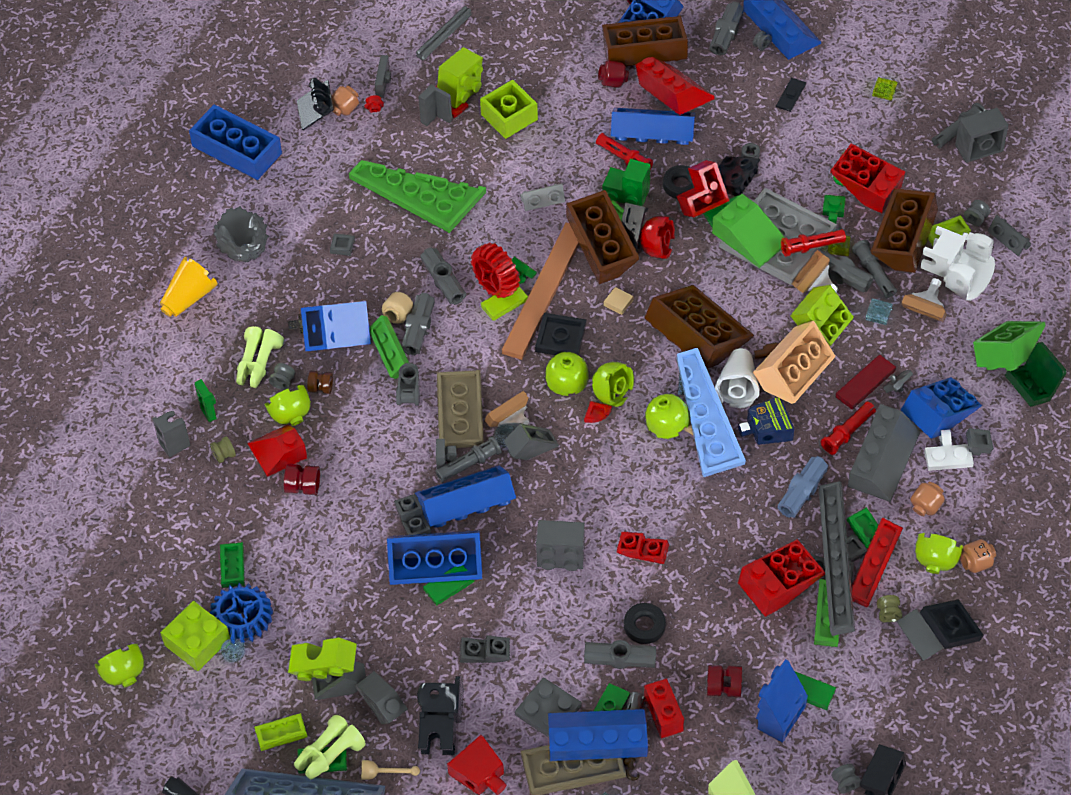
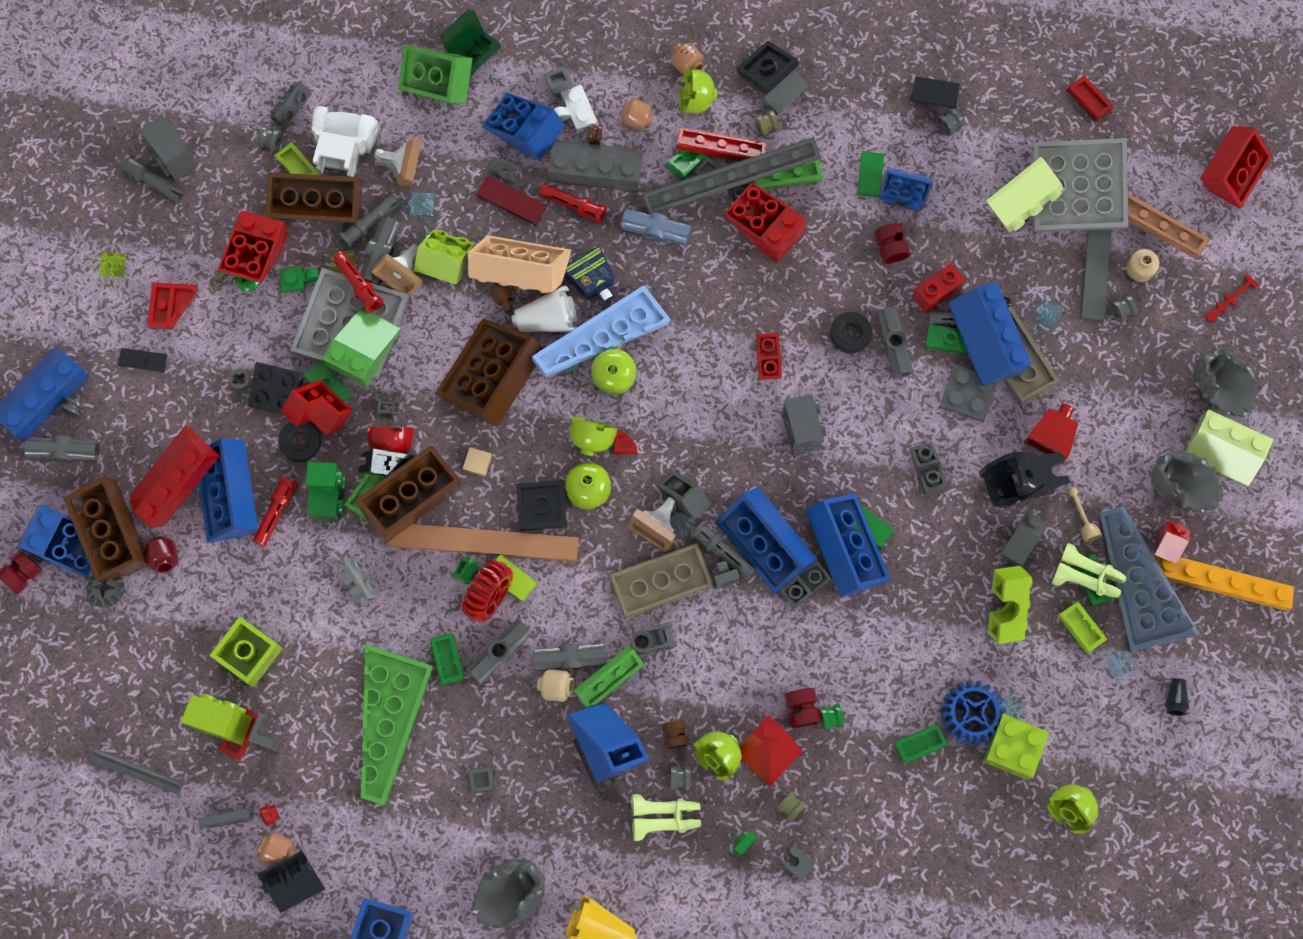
camera: 110 degrees left, 20 degrees up
(234, 757) = (1121, 663): none -> clear light blue tile
(285, 501) = (832, 717): none -> green wheel
(452, 241) = (447, 659): none -> green plate
(591, 41) = (110, 597): none -> dark grey gear
(696, 243) = (387, 412): none -> dark grey piece
(835, 117) = (168, 304): none -> red wing
(916, 461) = (595, 133): none -> reddish brown bush

